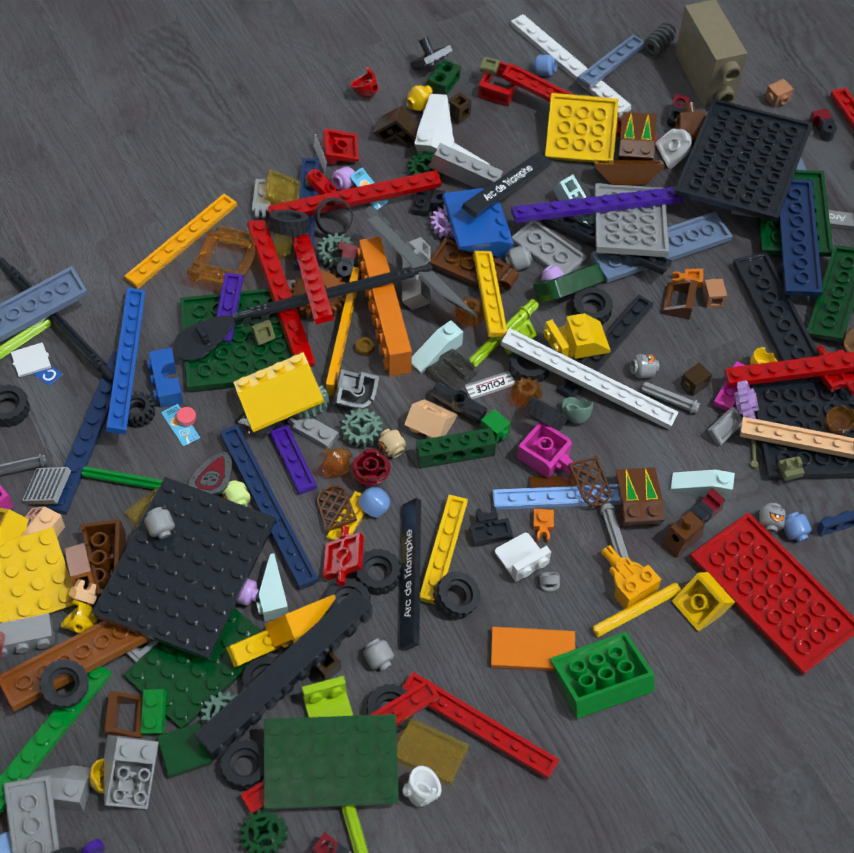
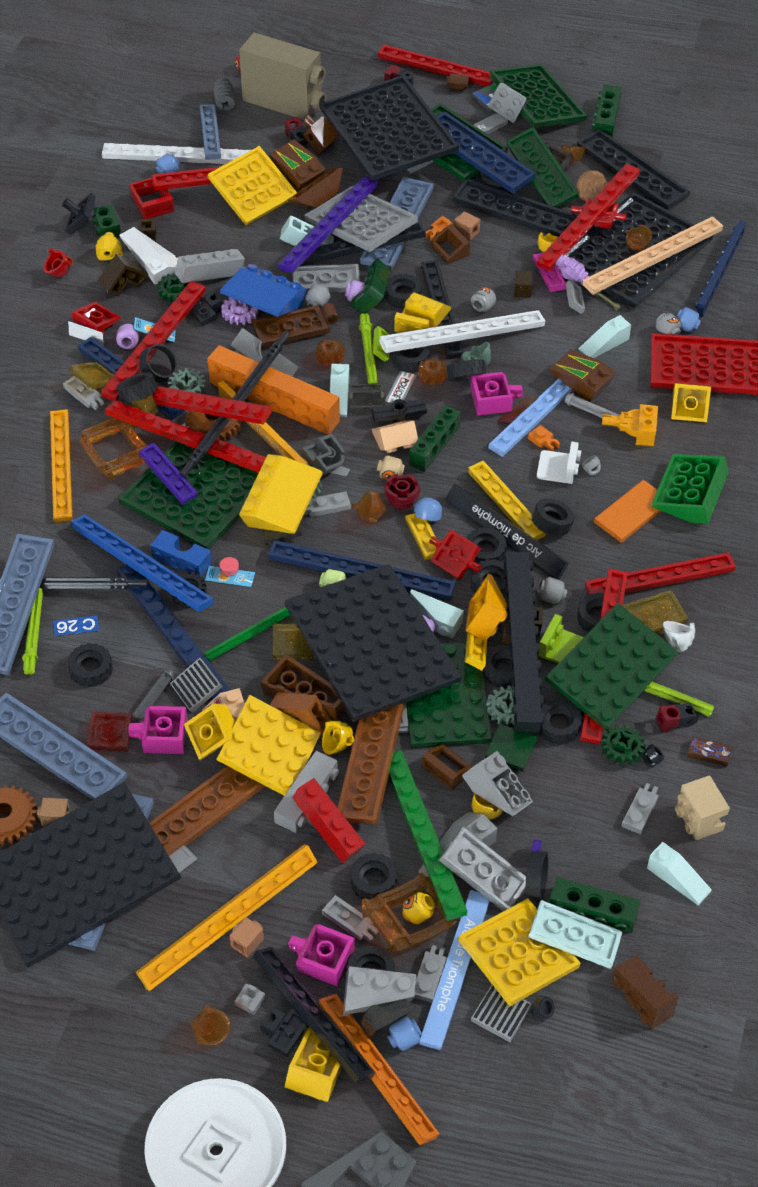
camera: 45 degrees left, 5 degrees down
(31, 360) = (61, 625): white piece -> none
(67, 700) = (384, 785): black tyre -> none
(82, 594) = (324, 713): light nougat tile -> none
(153, 711) = (463, 744): green plate -> none
(159, 523) = (328, 623): light grey head -> none
(202, 337) = (176, 506): black shield -> none
(213, 474) = (302, 579): shield -> none
(263, 332) = (214, 469): olive tile -> none
(293, 460) = (338, 532): dark purple tile -> none
(320, 182) = (112, 349): red plate -> none
(343, 522) = (408, 523): reddish brown window -> none
(347, 259) = (207, 380): leg -> none
(361, 427) = (358, 475): sand green gear -> none
(364, 346) = (288, 429): pearl gold tile -> none
(406, 250) = (262, 342): dark grey hinge -> none
(489, 66) = (134, 189): olive tile -> none
(489, 528) = (516, 467): black plate -> none
(490, 294) = (333, 329): yellow tile -> none
(499, 425) = (438, 401): green brick -> none
(506, 184) = (254, 254): black tile -> none
(580, 488) = (541, 396): reddish brown window -> none
(636, 609) = (659, 439): yellow axle -> none
(674, 146) = (327, 152): white tile -> none
(675, 399) = (522, 306): light grey axle -> none
(688, 530) = (634, 365): reddish brown torso -> none
(708, 506) = (625, 350): leg -> none
(779, 93) = (346, 77): nougat brick -> none
(791, 468) = (644, 288): olive tile -> none

